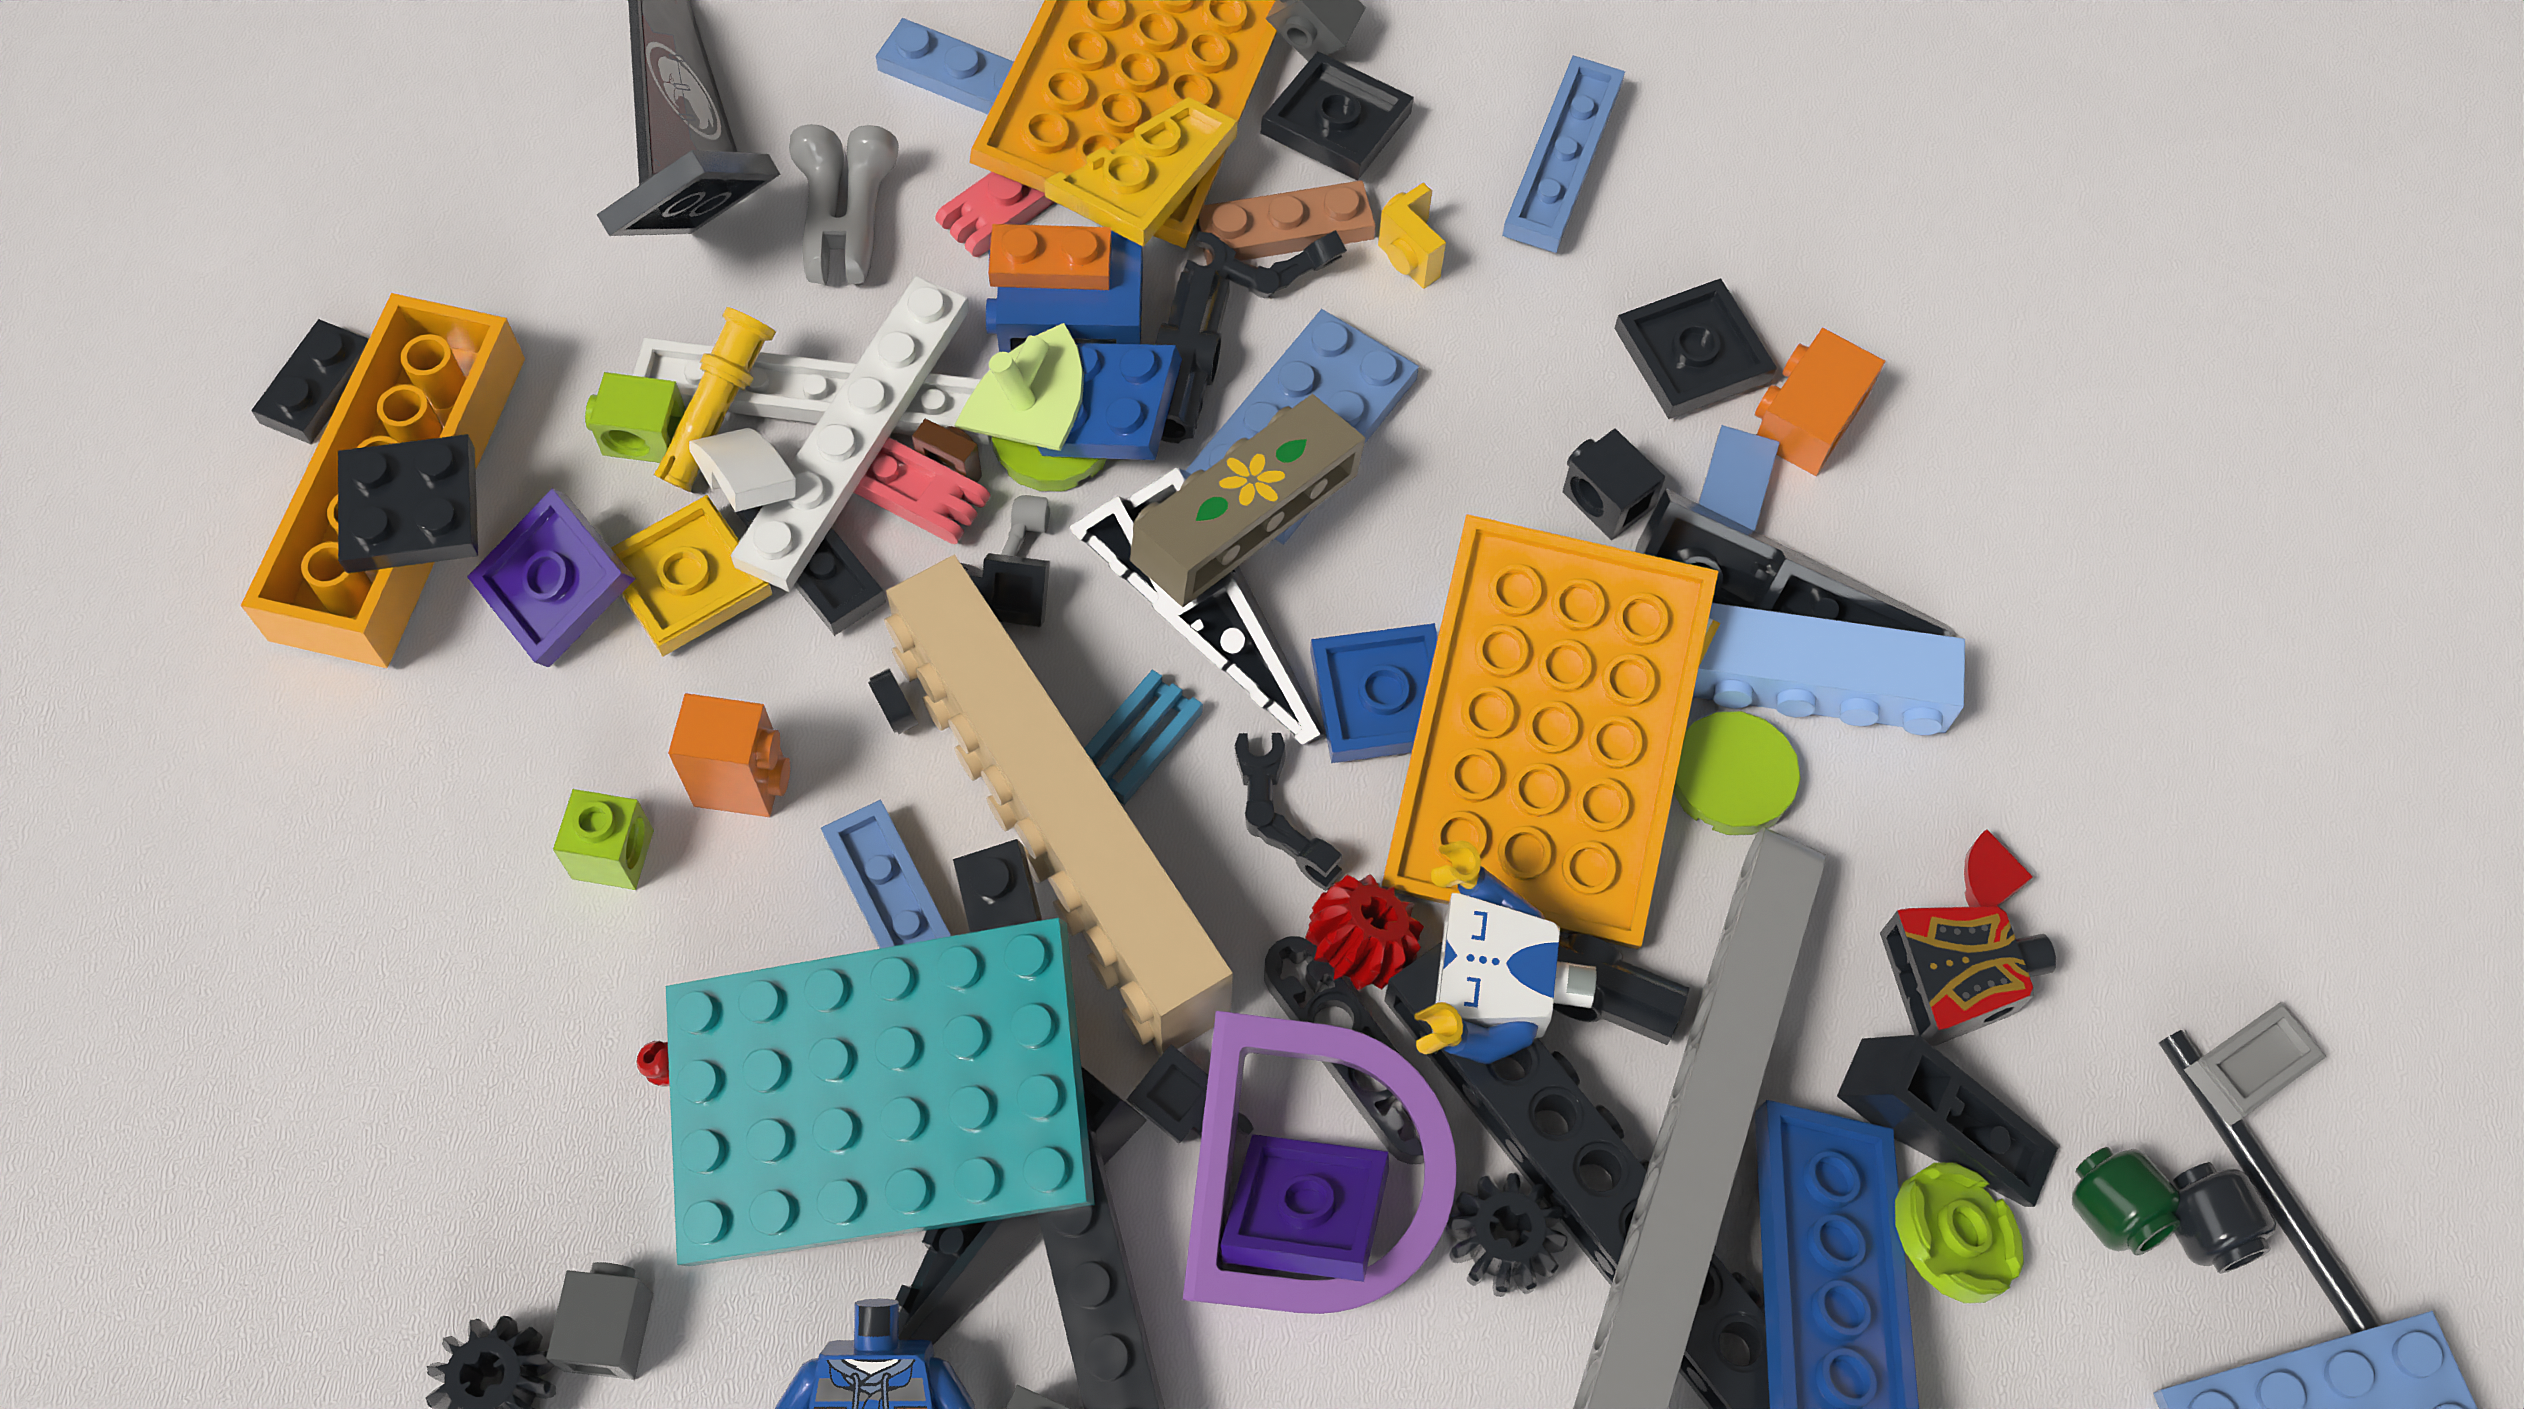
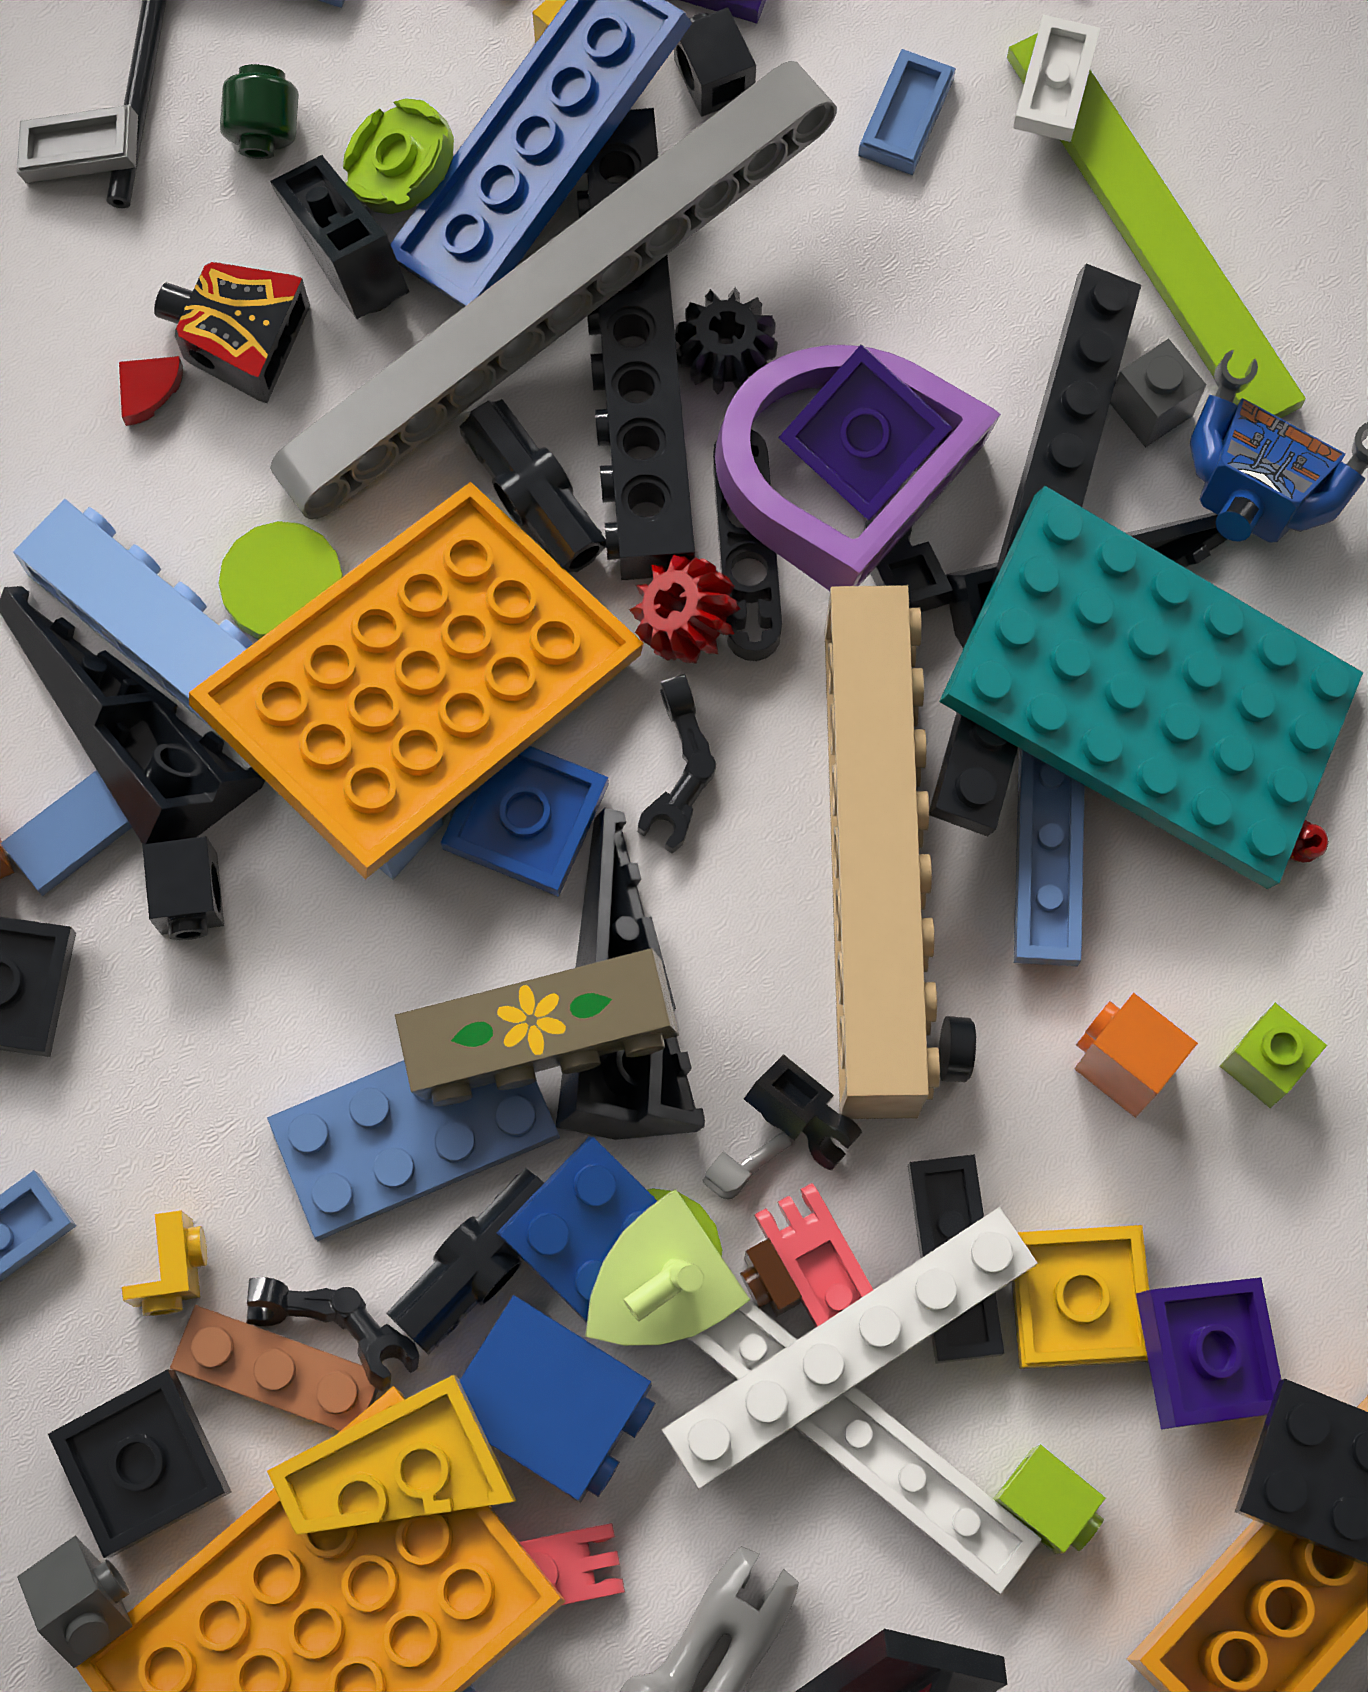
camera: 145 degrees left, 10 degrees up
(724, 374) = (946, 1477): yellow pin -> none
(744, 468) = (982, 1348): white slope -> none
(1050, 257) = (554, 1420): orange plate -> none
(1169, 698) = (749, 879): dark azure tile -> none
(1495, 967) = (620, 484): torso -> none
(2221, 1218) = (202, 58): black head -> none

